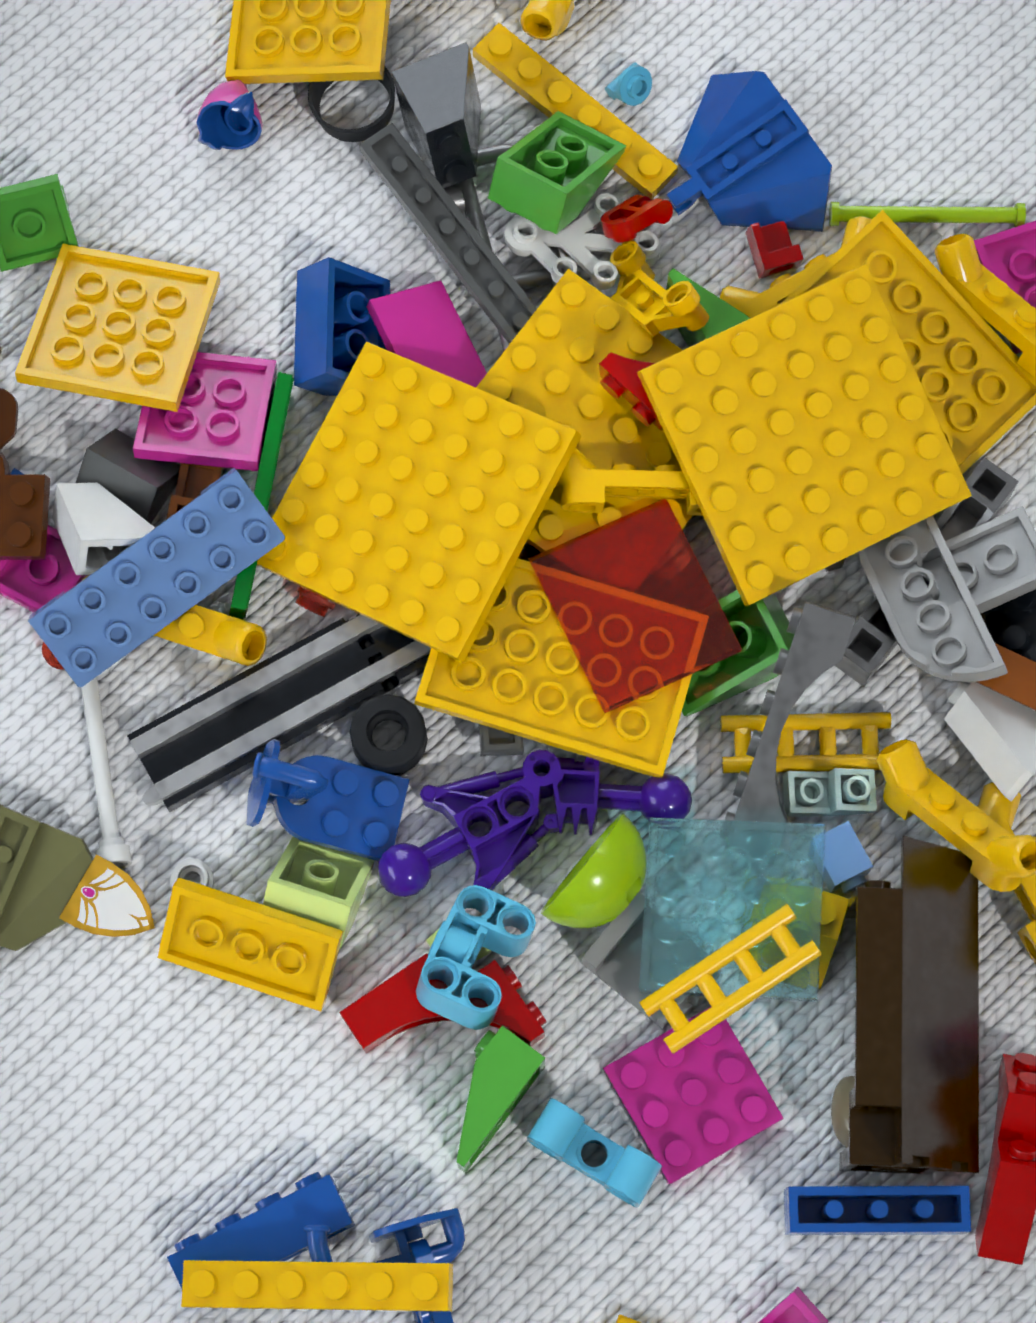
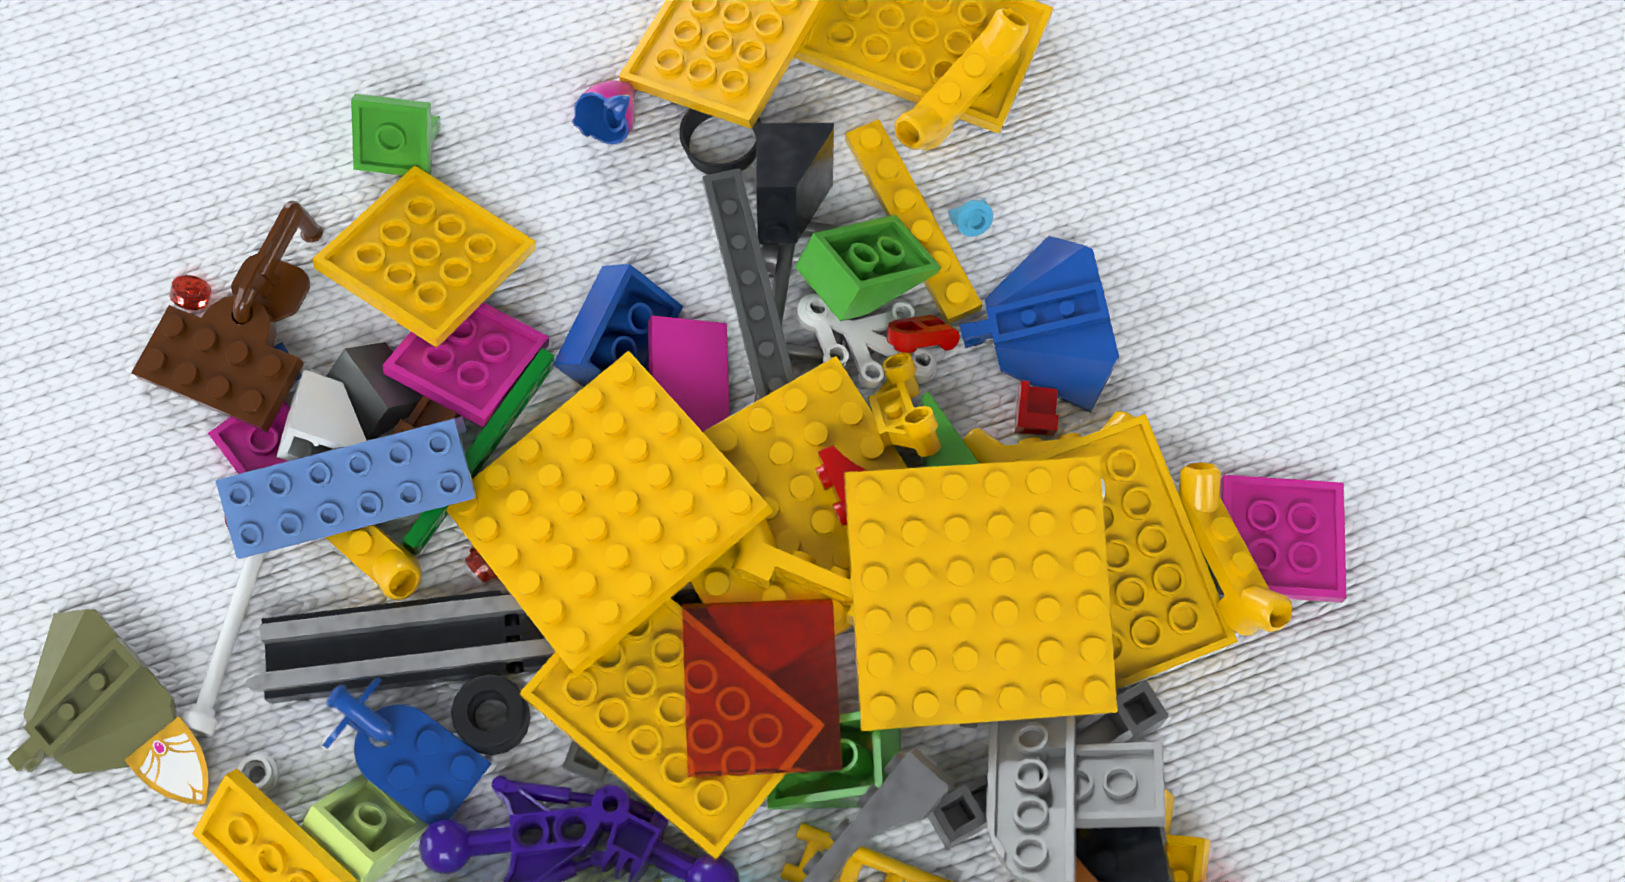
camera: 20 degrees right, 5 degrees down
(931, 214) = (1196, 435): lime bar -> none

